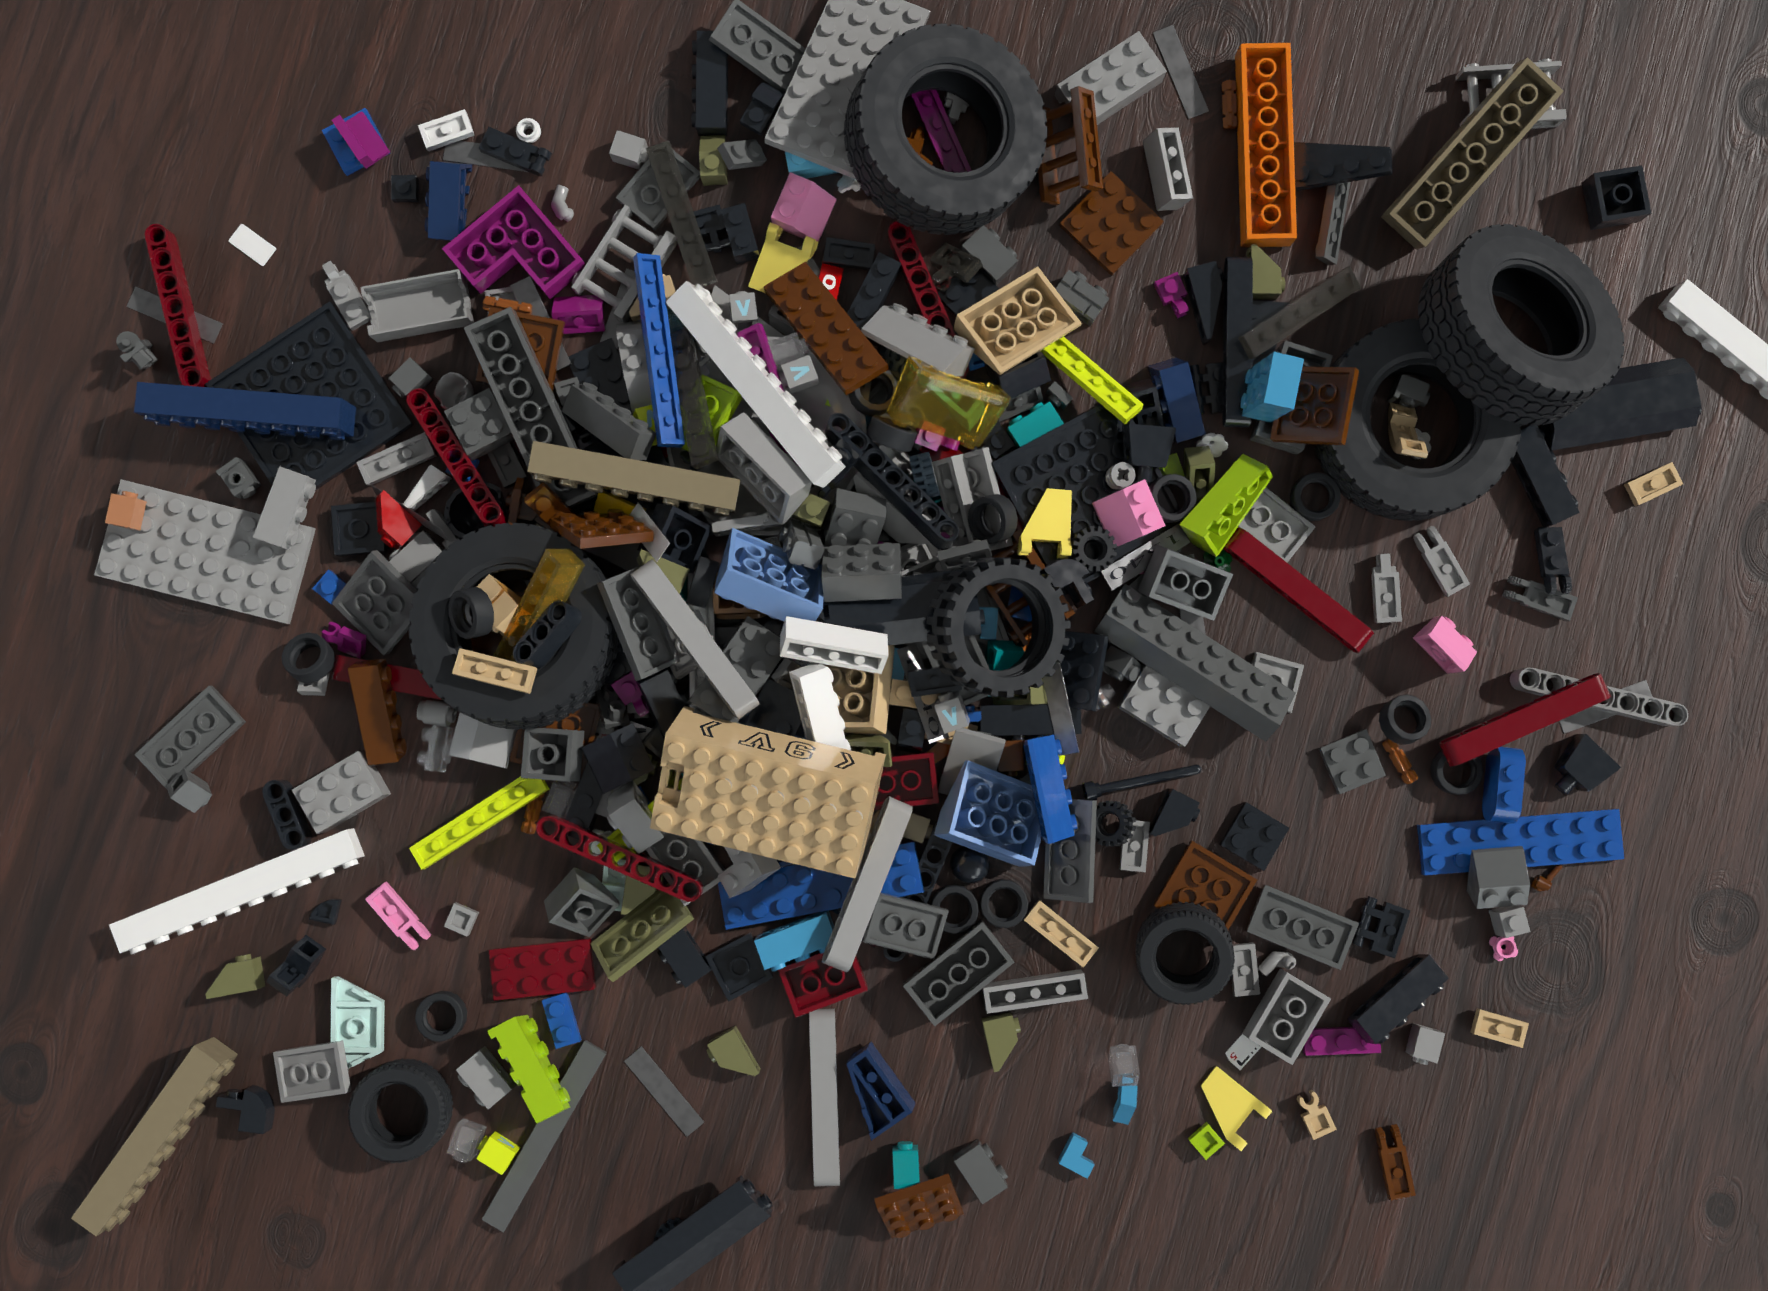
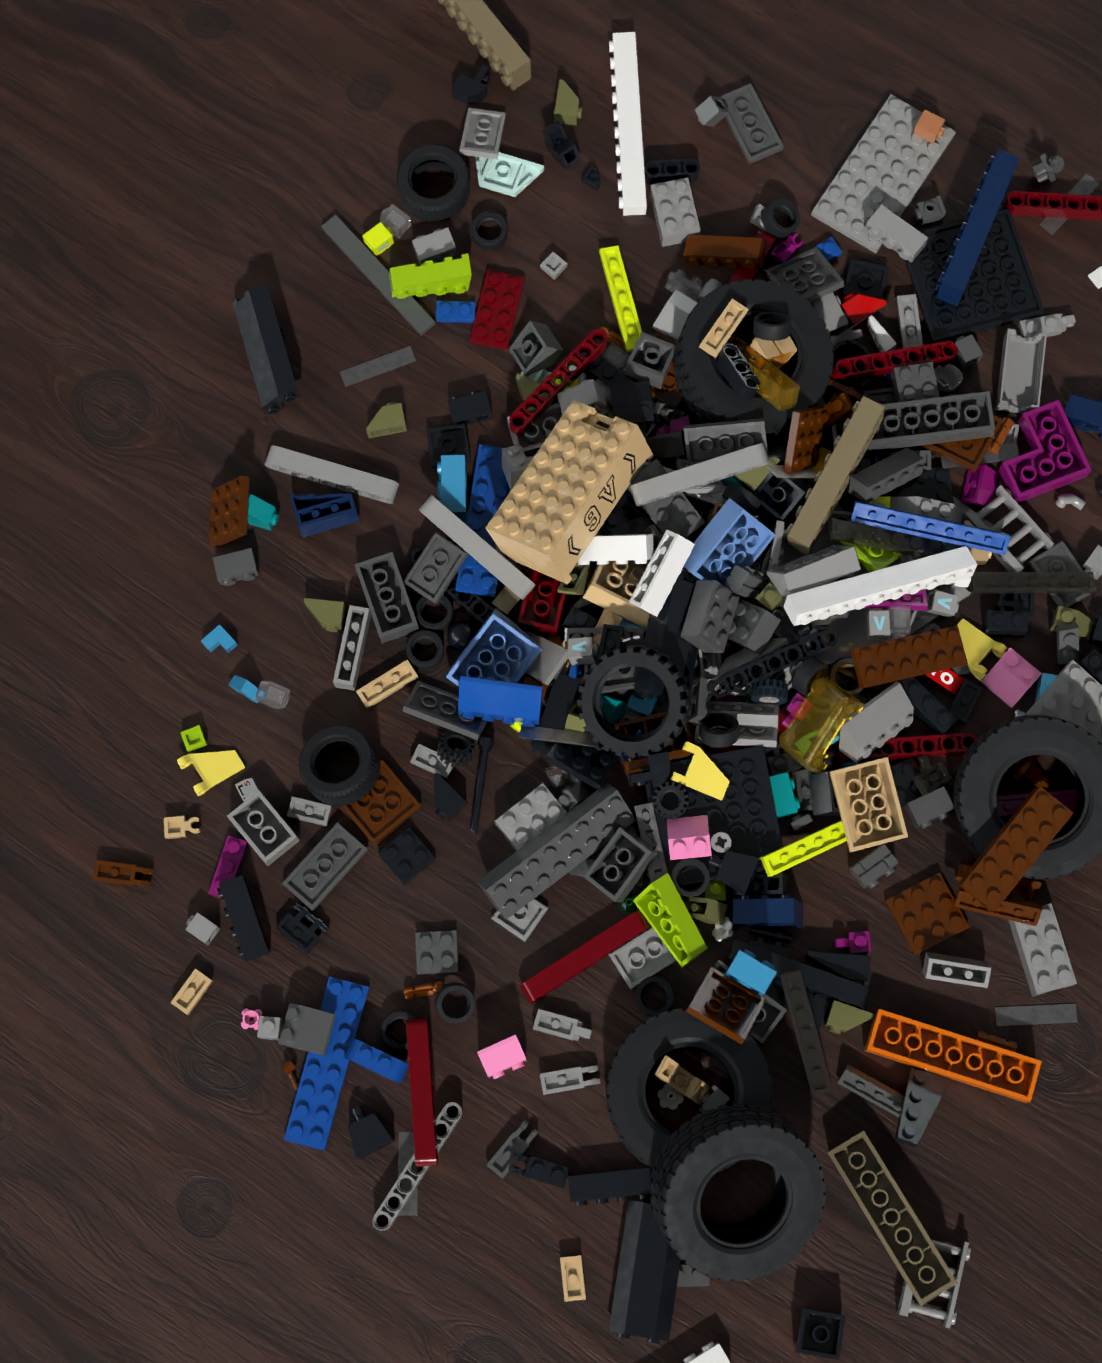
camera: 115 degrees right, 10 degrees down
(396, 914) = (572, 223): bright pink hinge -> none
(640, 933) = (497, 381): olive plate -> none
(817, 985) = (414, 488): dark red brick -> none
(1025, 131) = (1015, 848): none -> reddish brown brick
(1277, 959) = (307, 839): light grey arm -> none

